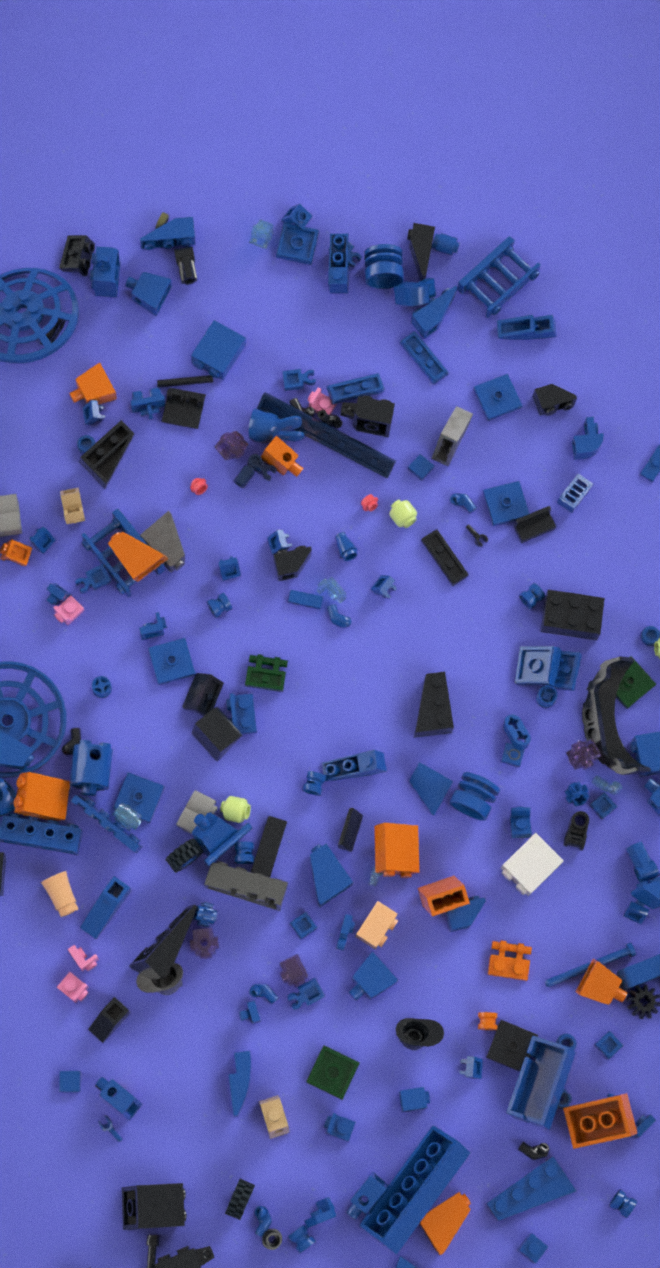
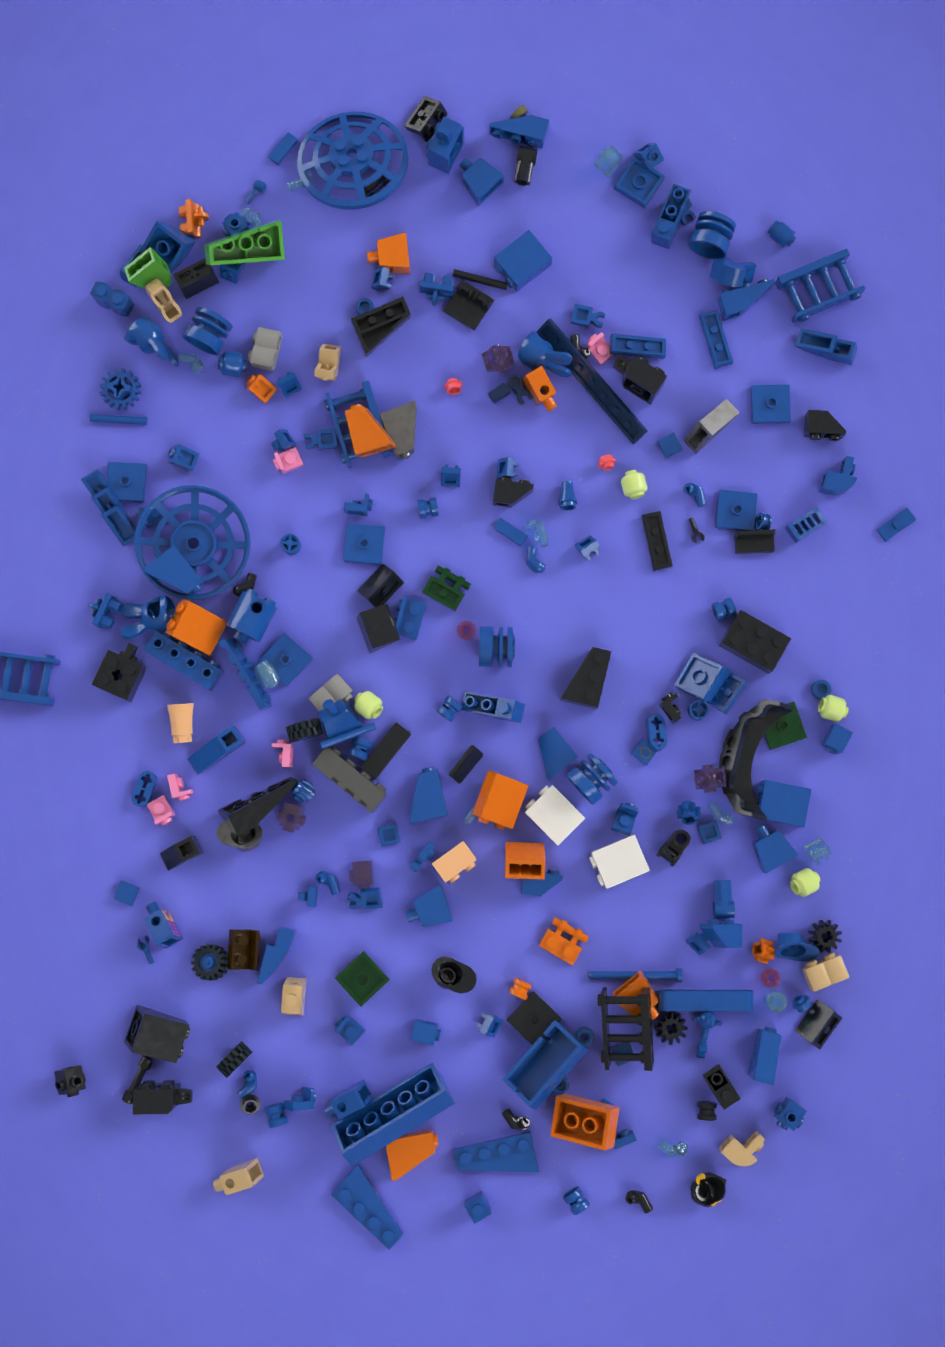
camera: 30 degrees right, 10 degrees up
(53, 973) = (139, 787): none -> blue beam
(175, 887) = (286, 756): none -> bright pink bracket
(179, 1115) = (210, 962): none -> black wheel
(207, 1089) = (243, 949): none -> dark brown bracket
(300, 699) = (462, 625): none -> clear pink plate
(331, 420) = (602, 368): black arm -> none
(335, 708) = (496, 646): none -> blue wheel
(420, 246) = (757, 226): black slope -> none
(452, 844) = (554, 814): none -> white brick
(520, 706) = (670, 710): none -> black bracket
(534, 503) = (763, 521): none -> blue bush
(622, 1019) = (643, 1019): none -> black fence

